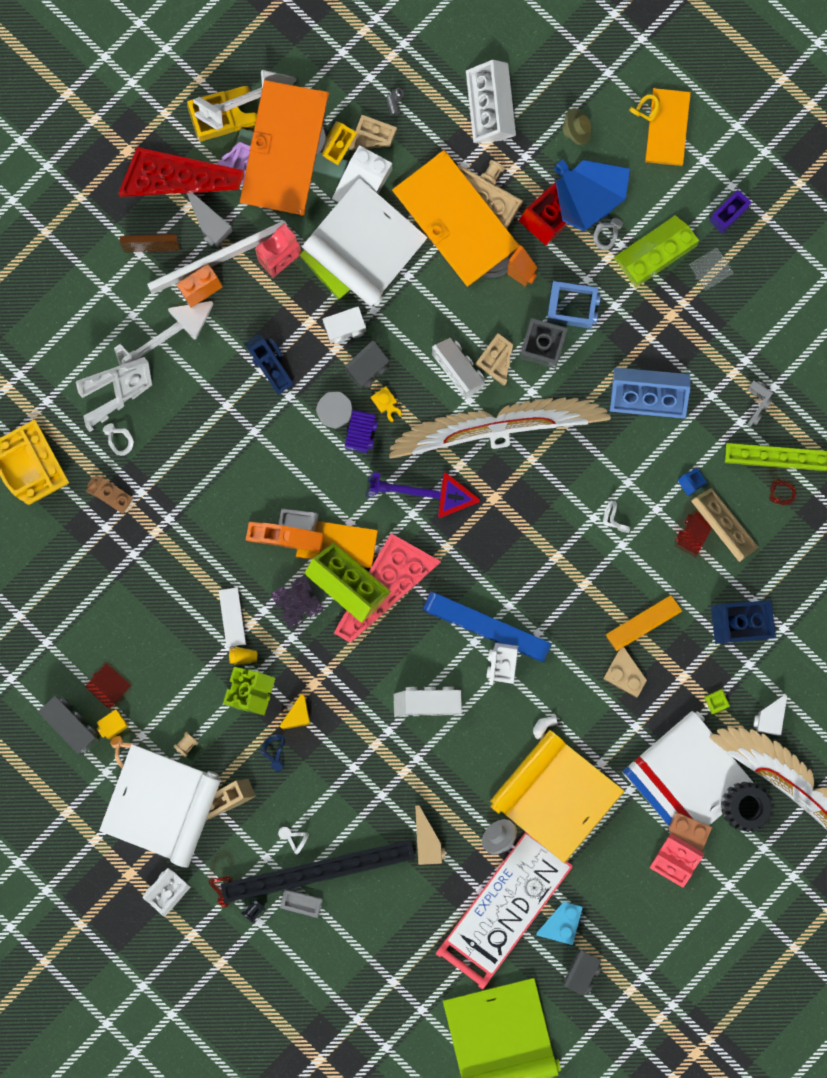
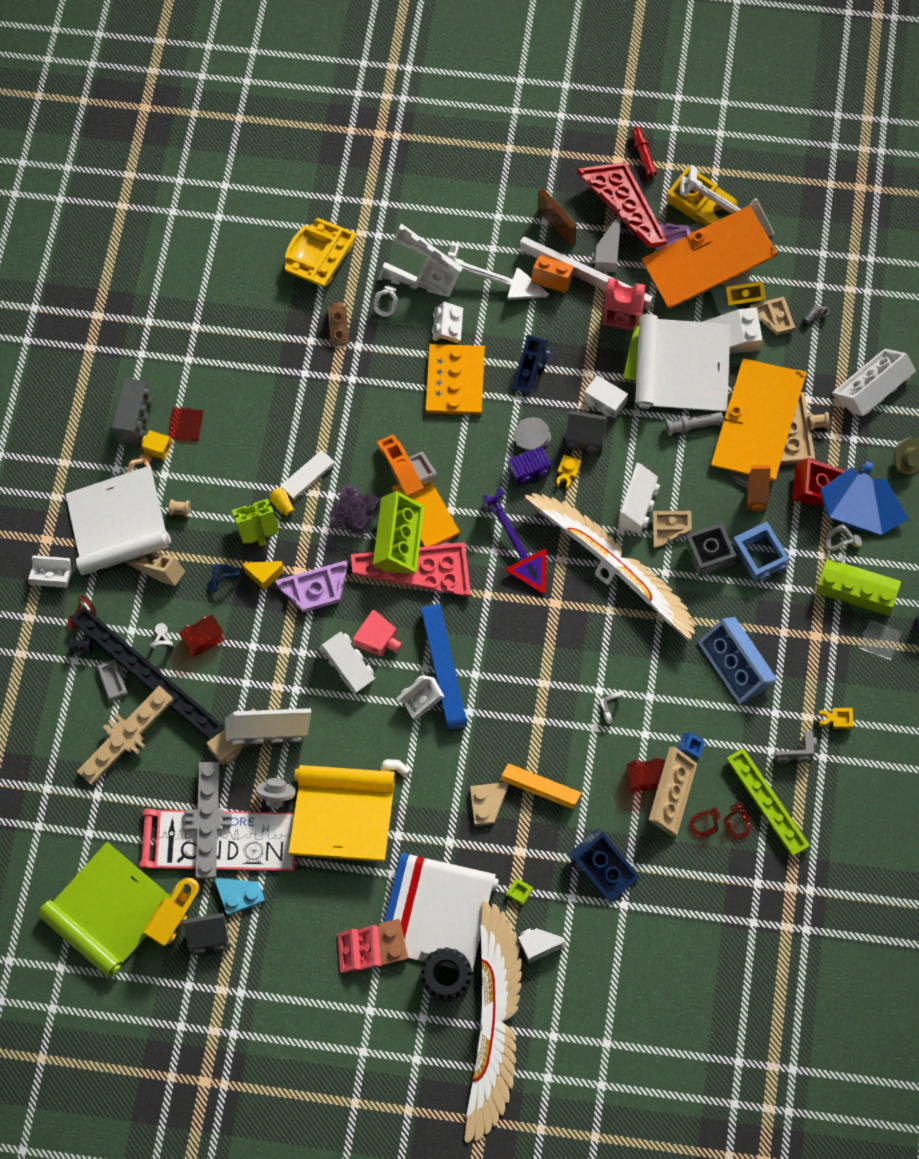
camera: 55 degrees right, 15 degrees down
(137, 124) = (644, 153): none -> red pin
(177, 404) = (447, 322): none -> white bracket
(234, 434) = (455, 379): none -> light orange plate
(316, 803) = (202, 635): none -> clear red brick
(340, 682) = (315, 587): none -> lavender wing
(361, 925) = (125, 735): none -> tan hinge
(416, 280) = (684, 424): none -> light grey pin
(421, 661) = (377, 635): none -> coral torso
(442, 805) = (267, 725): none -> white slope
(483, 907) = (207, 820): none -> light grey hinge
(546, 990) = (171, 913): none -> yellow brick
(755, 350) = (840, 718): none -> yellow plate
(764, 505) = (714, 813): none -> clear red piece

